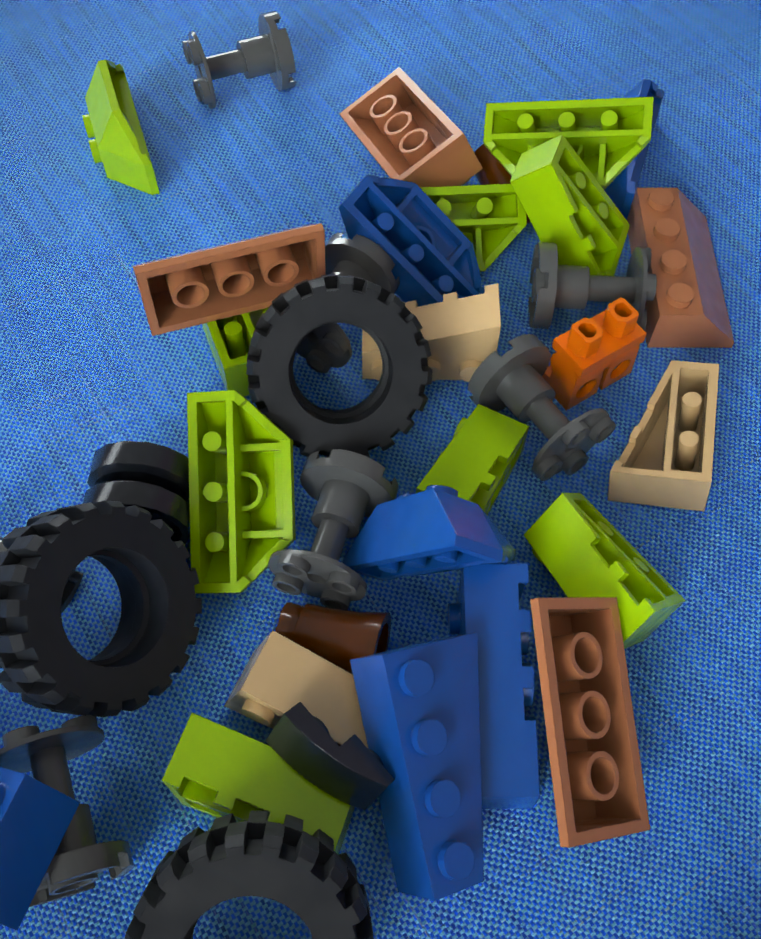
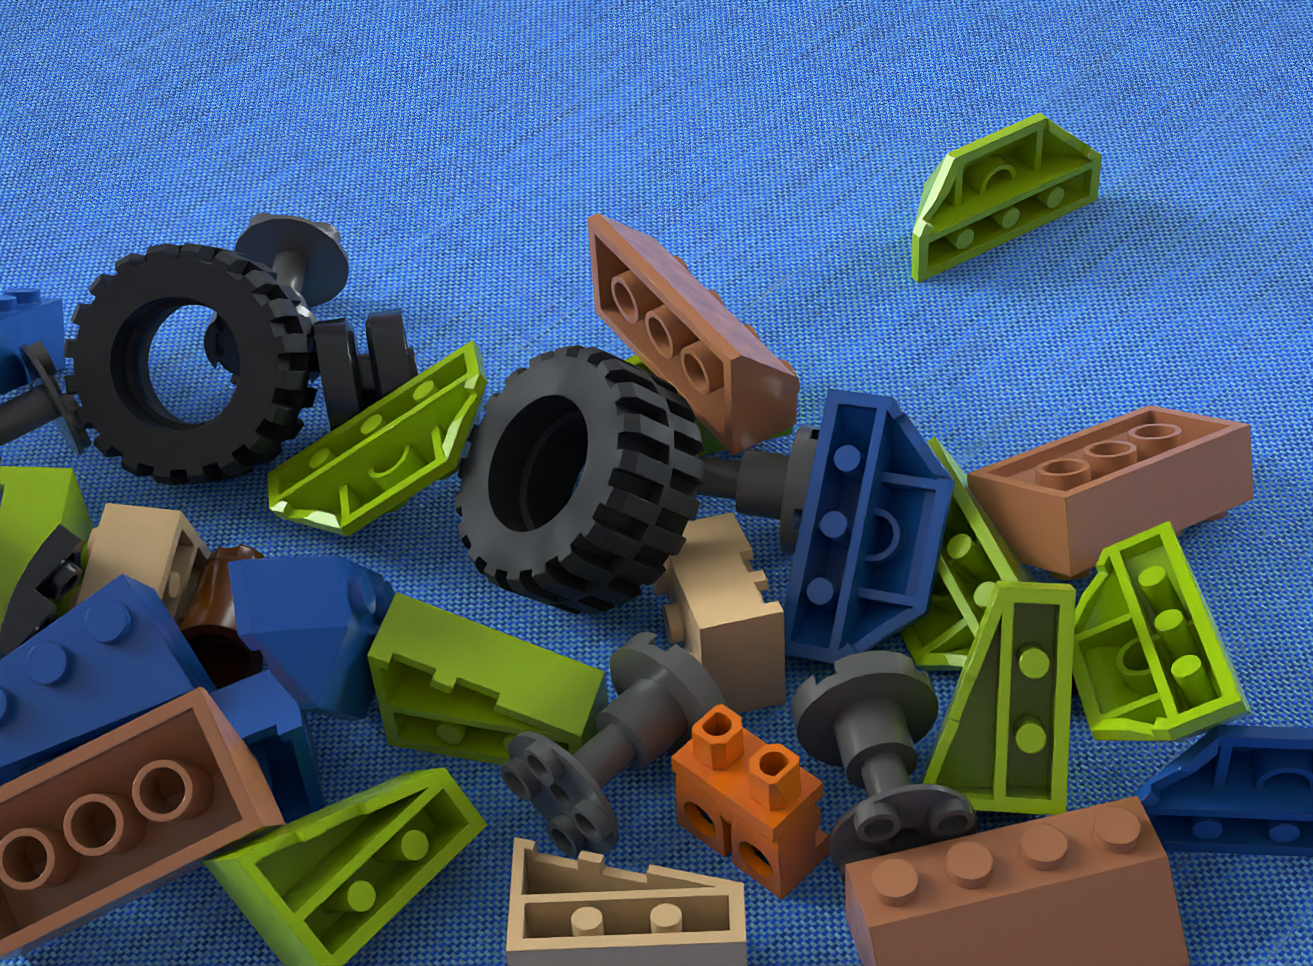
camera: 80 degrees right, 15 degrees down
(254, 57) = (1218, 287): dark grey piece -> none
(345, 492) = (412, 561): dark grey piece -> none

